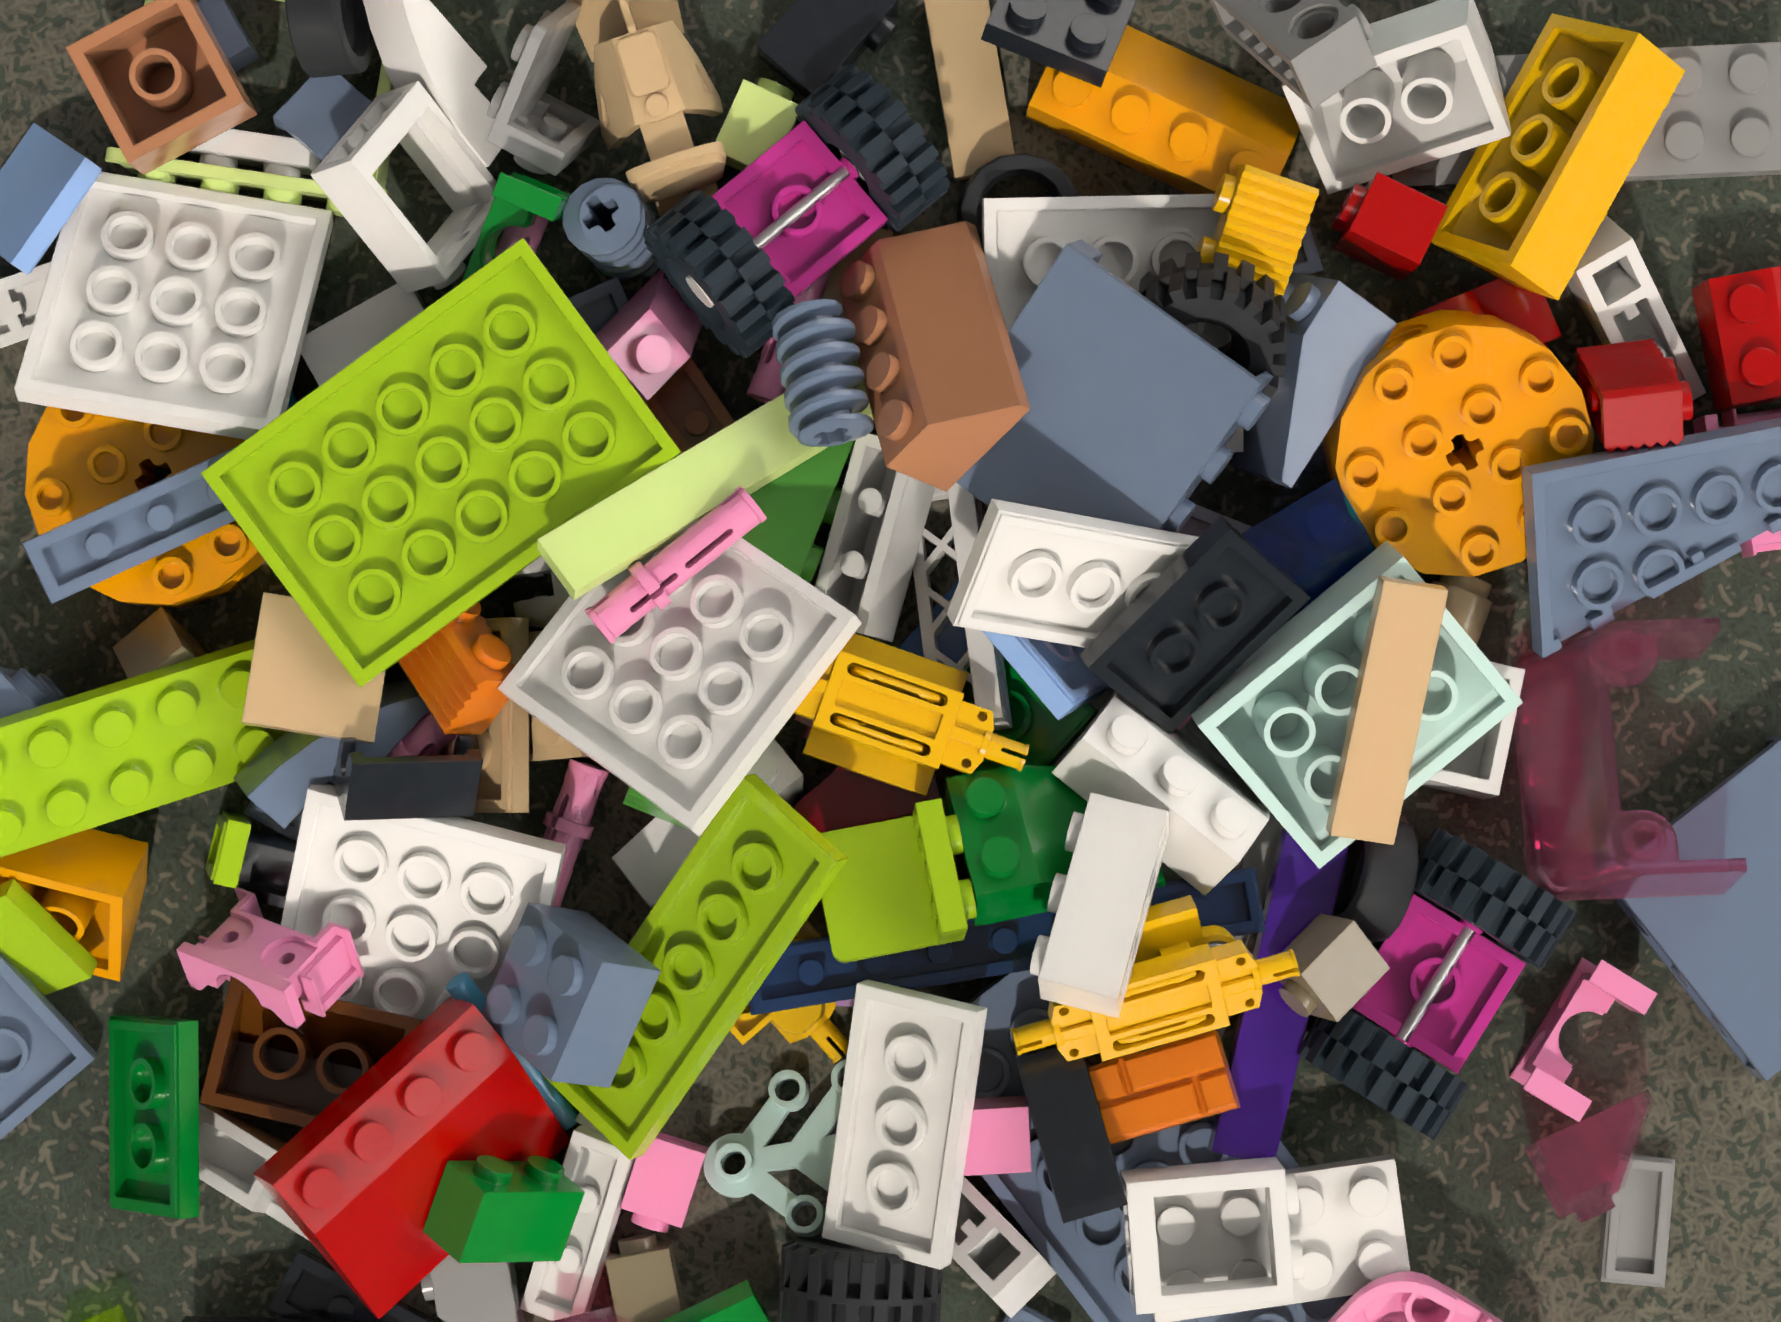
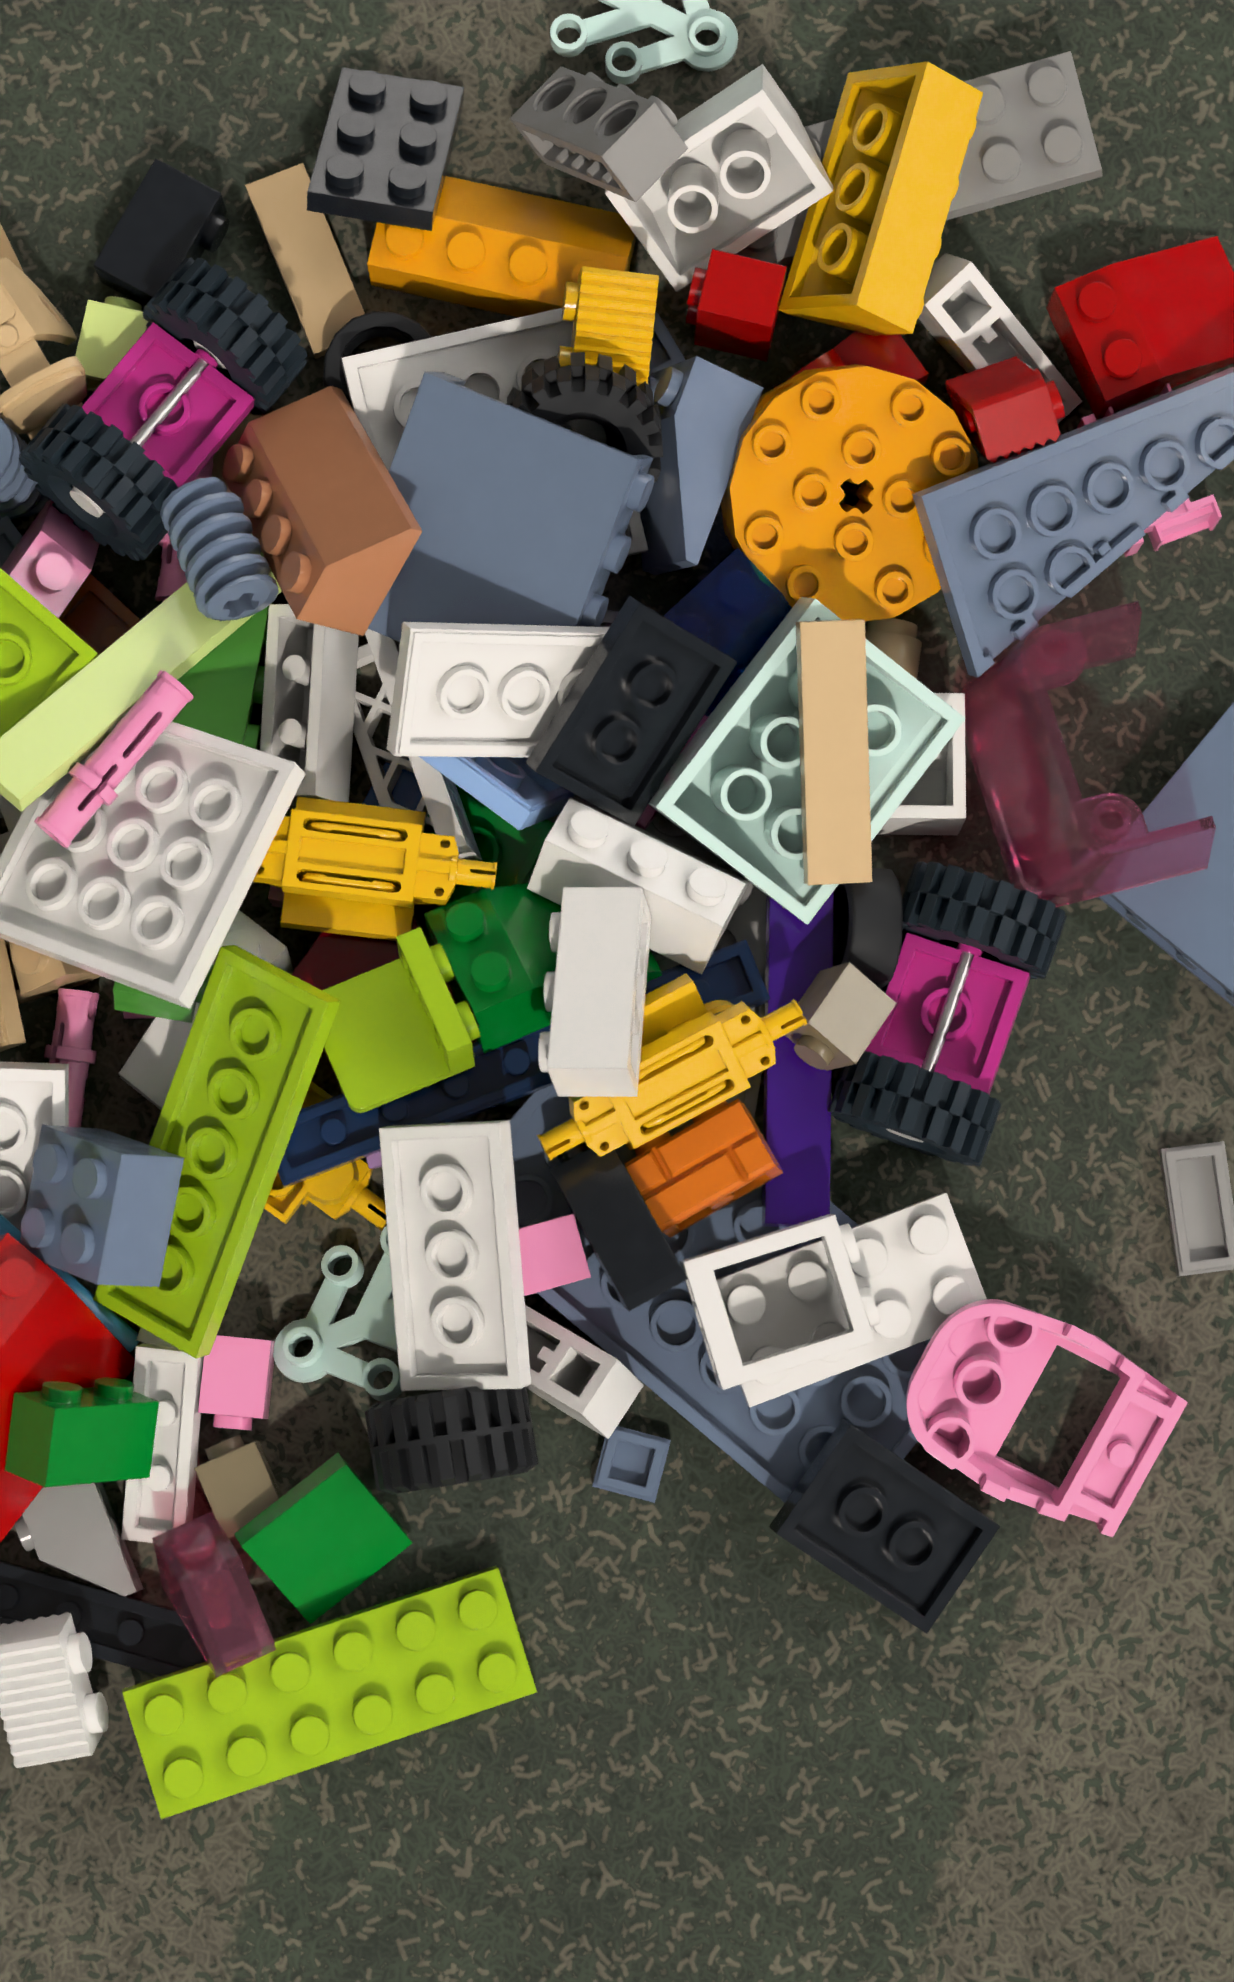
camera: 15 degrees left, 5 degrees down
(1590, 989) = (1101, 995): bright pink piece -> none
(1591, 1157) = (1140, 1151): clear pink slope -> none

